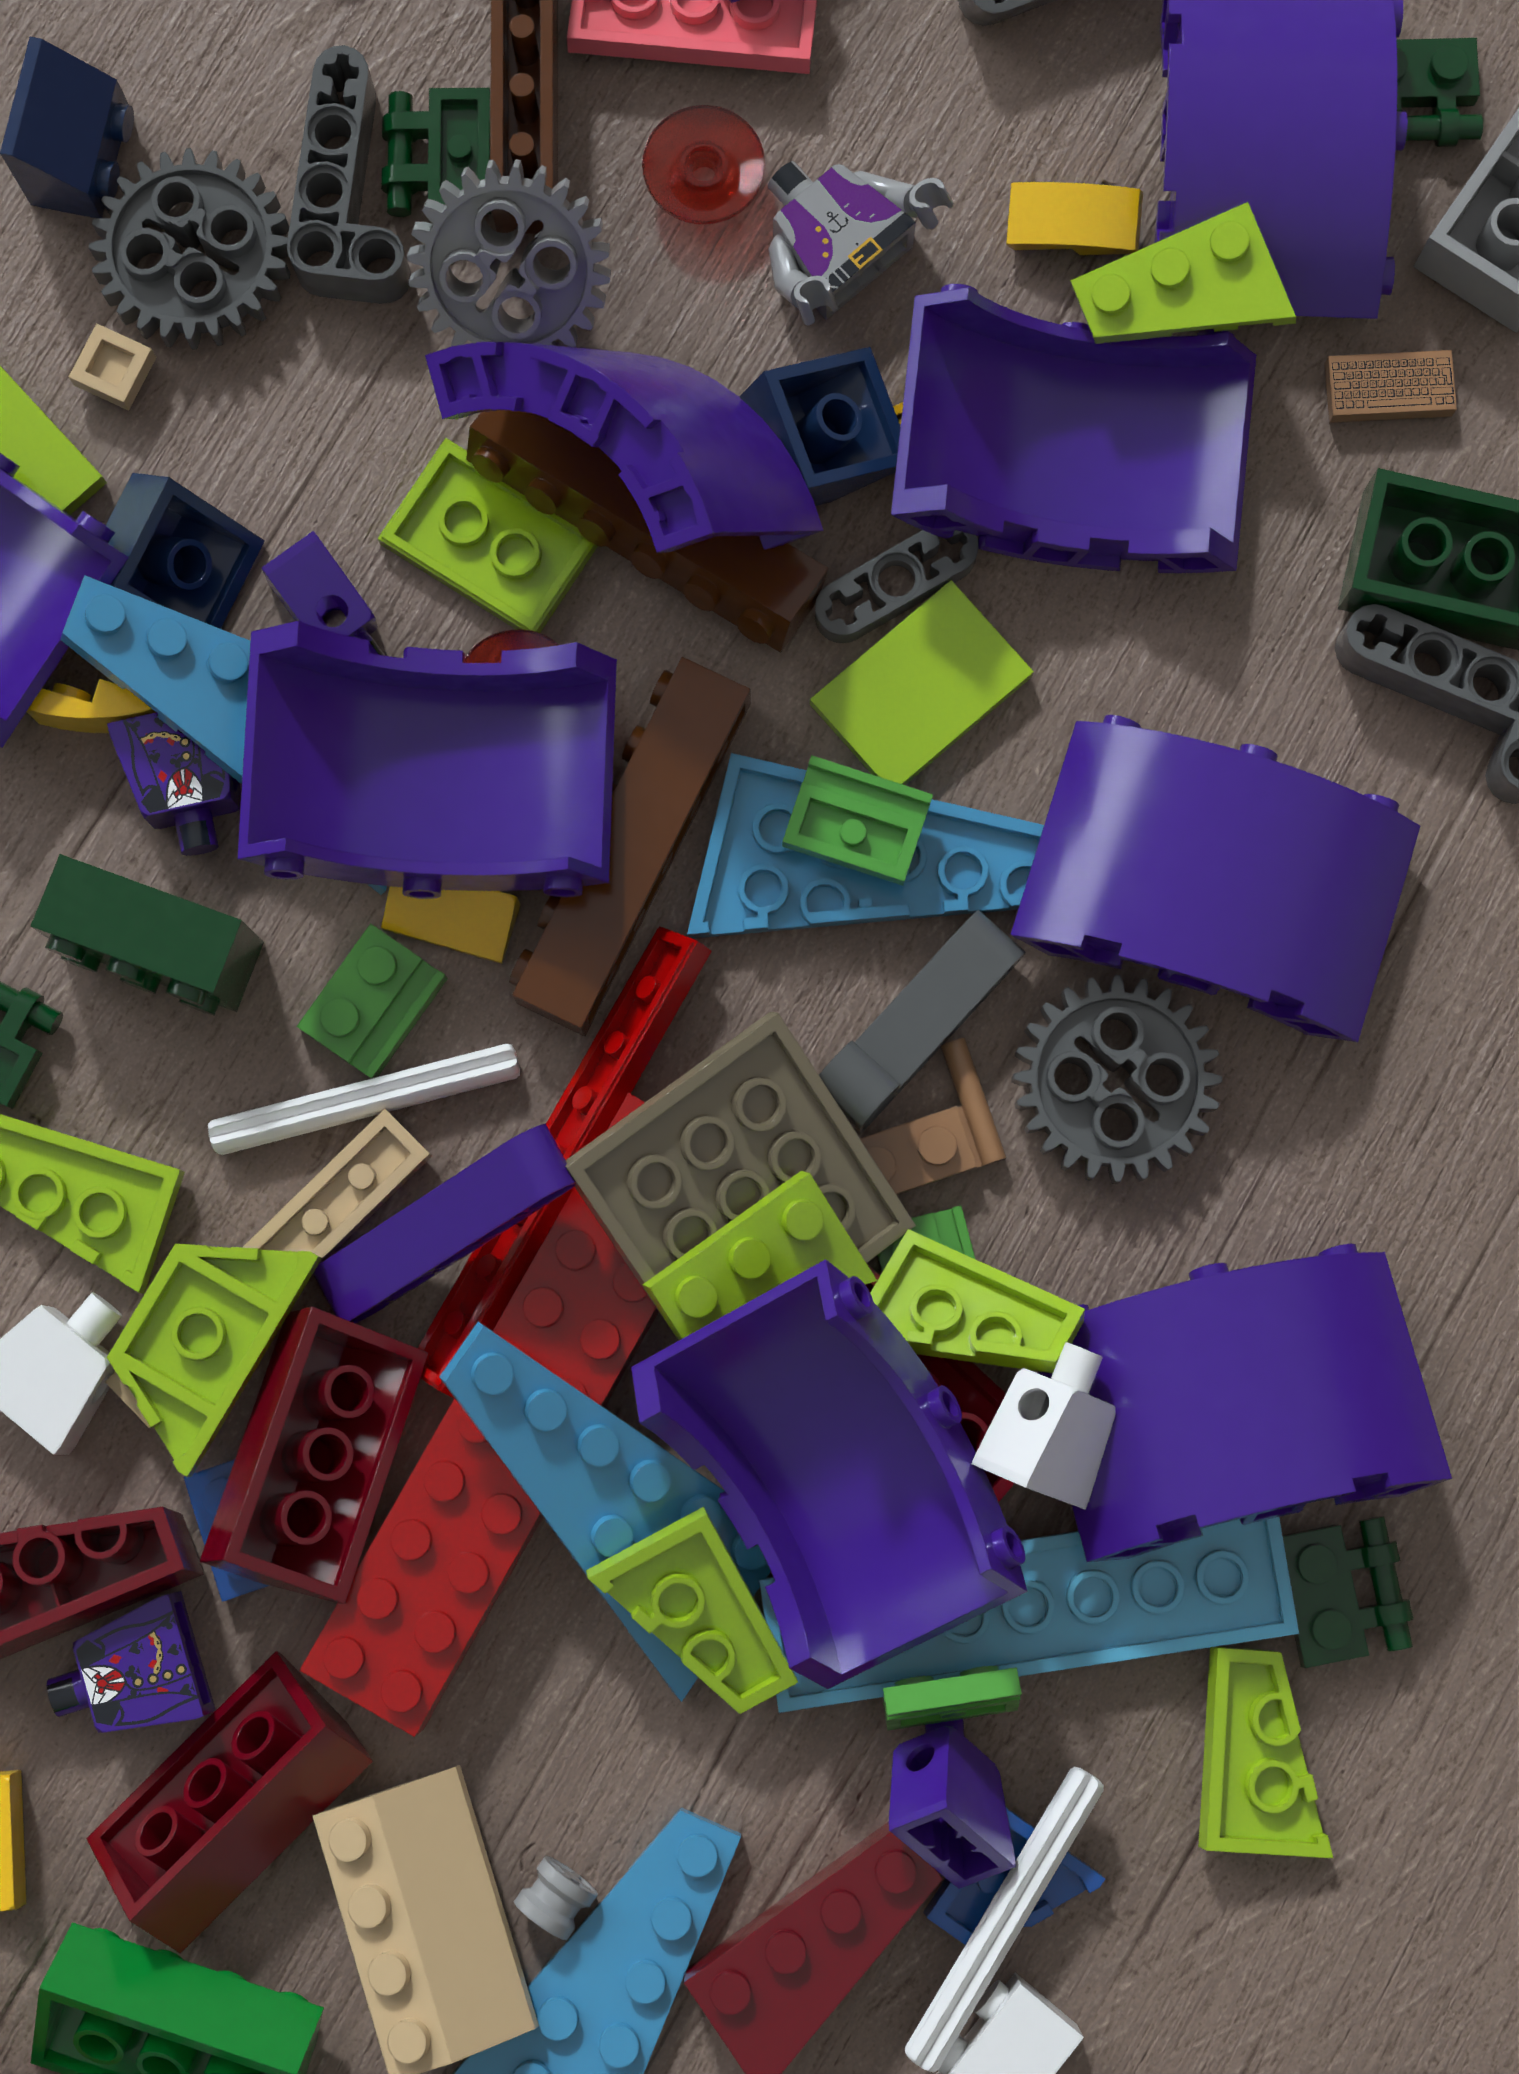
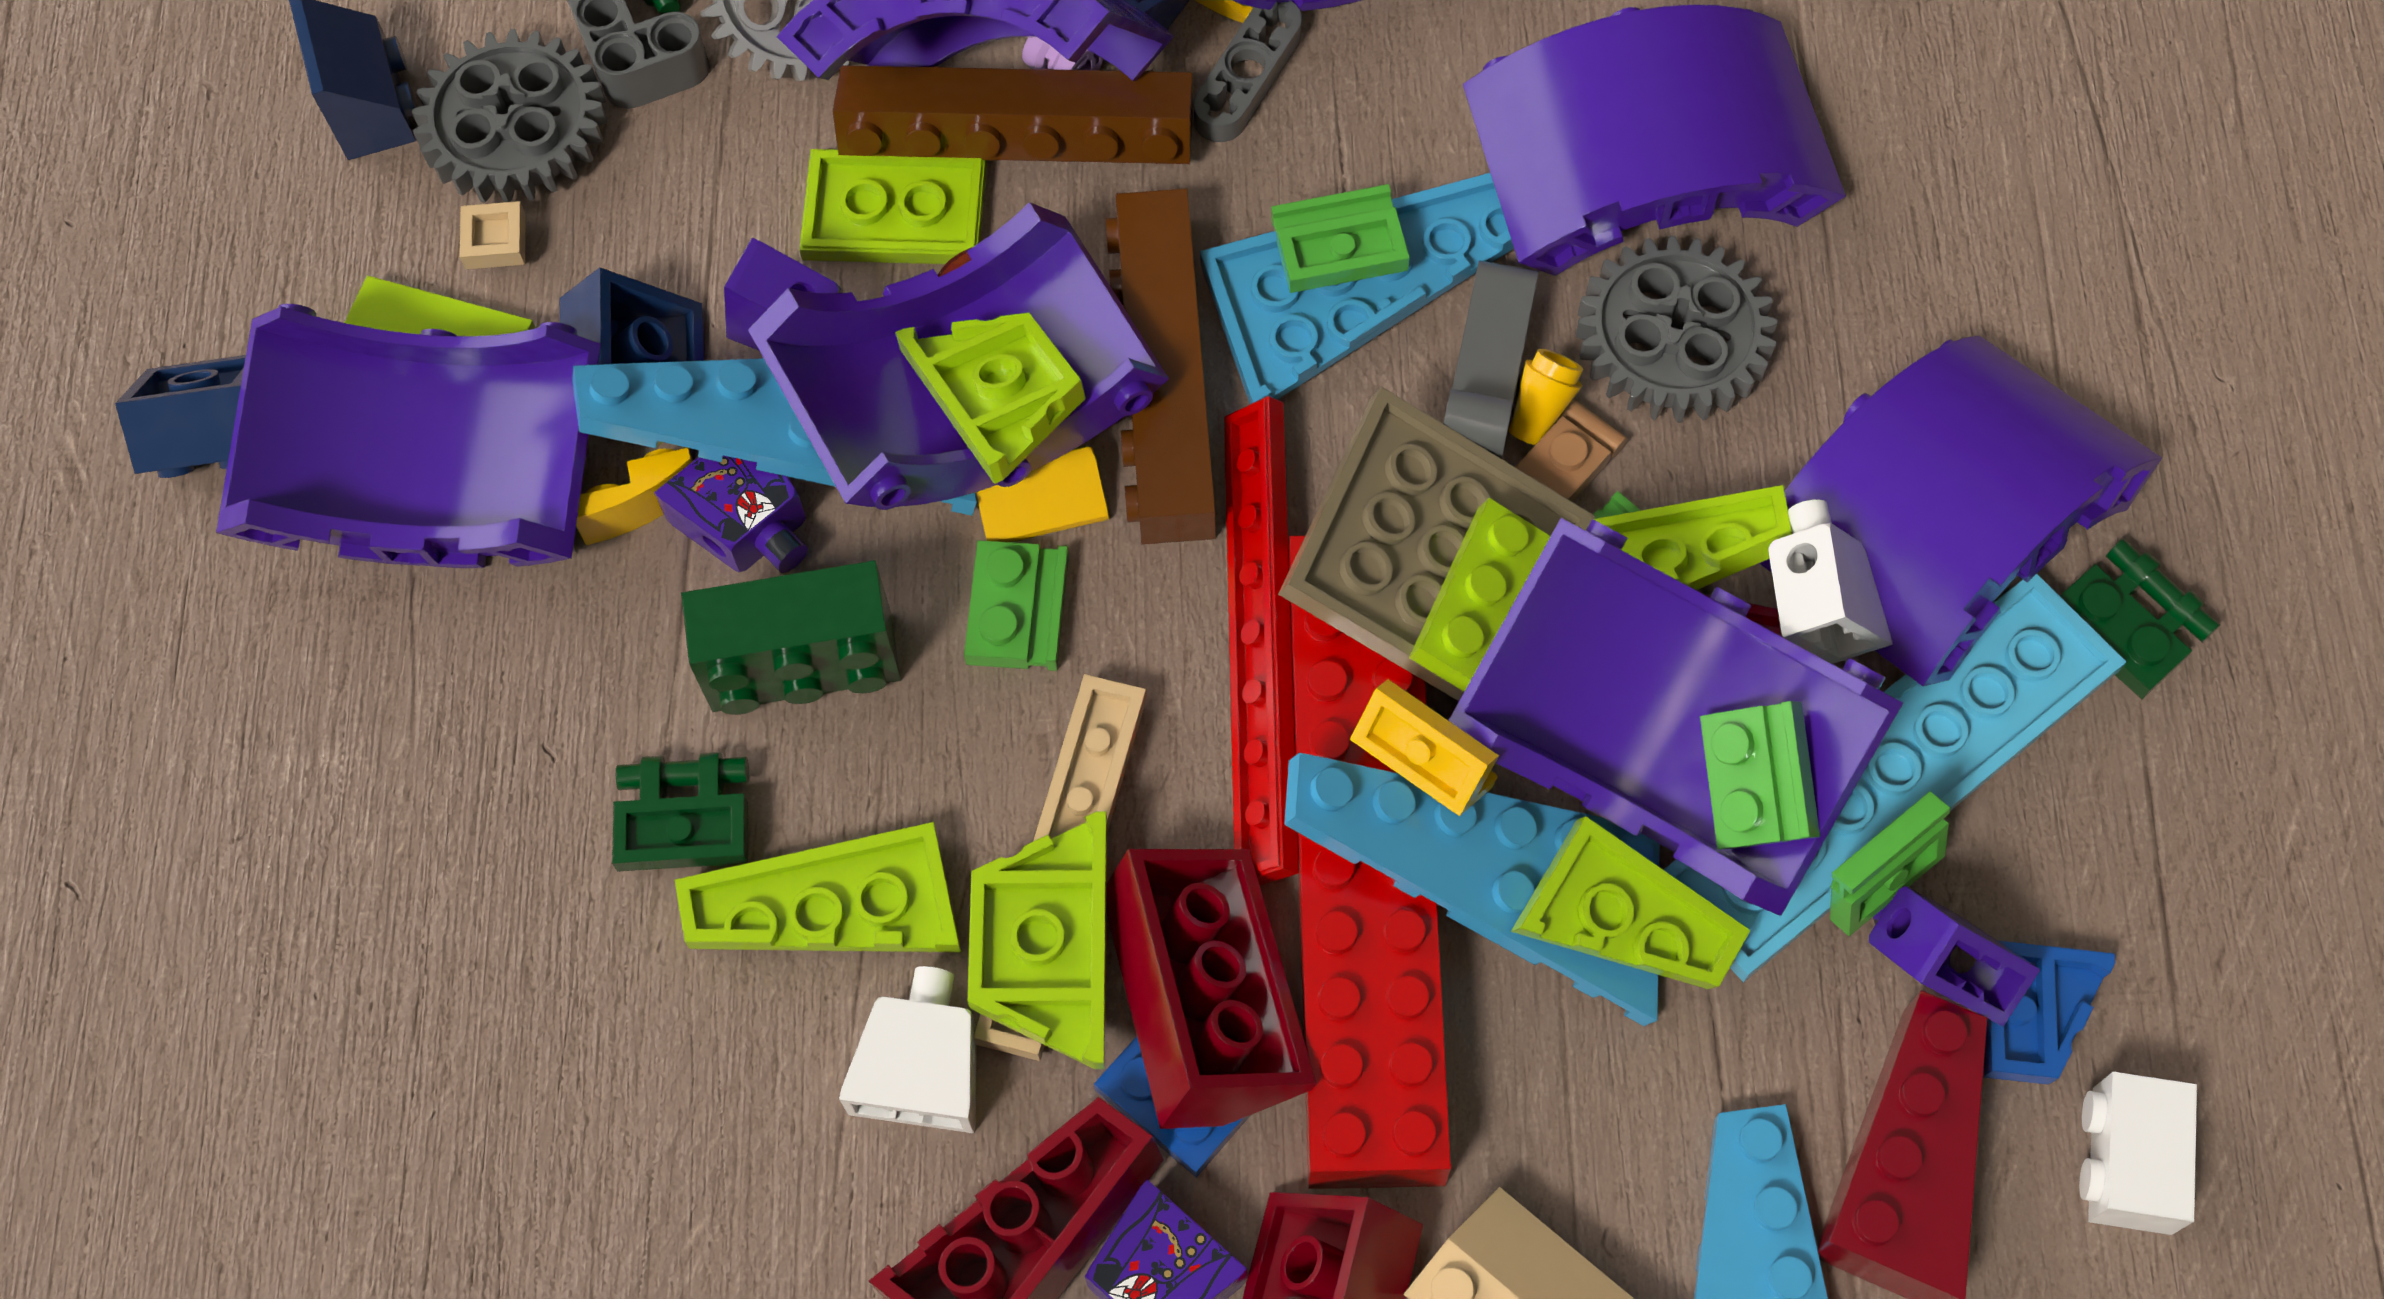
camera: 30 degrees left, 15 degrees down
(363, 1099) = (1056, 685): white axle -> none
(443, 808) = (996, 385): none -> lime wing
(445, 1225) = (1205, 713): dark purple beam -> none
(555, 1898) = (1661, 1252): light grey wheel -> none
(599, 1377) = (1425, 748): none -> yellow panel
(877, 1568) = (1759, 775): none -> bright green plate
(921, 686) = (1318, 128): lime tile -> none
(952, 1077) = (1544, 394): none -> yellow cone
(1003, 1919) = (2059, 1032): white axle -> none
(1253, 1762) = (2165, 794): lime wing -> none

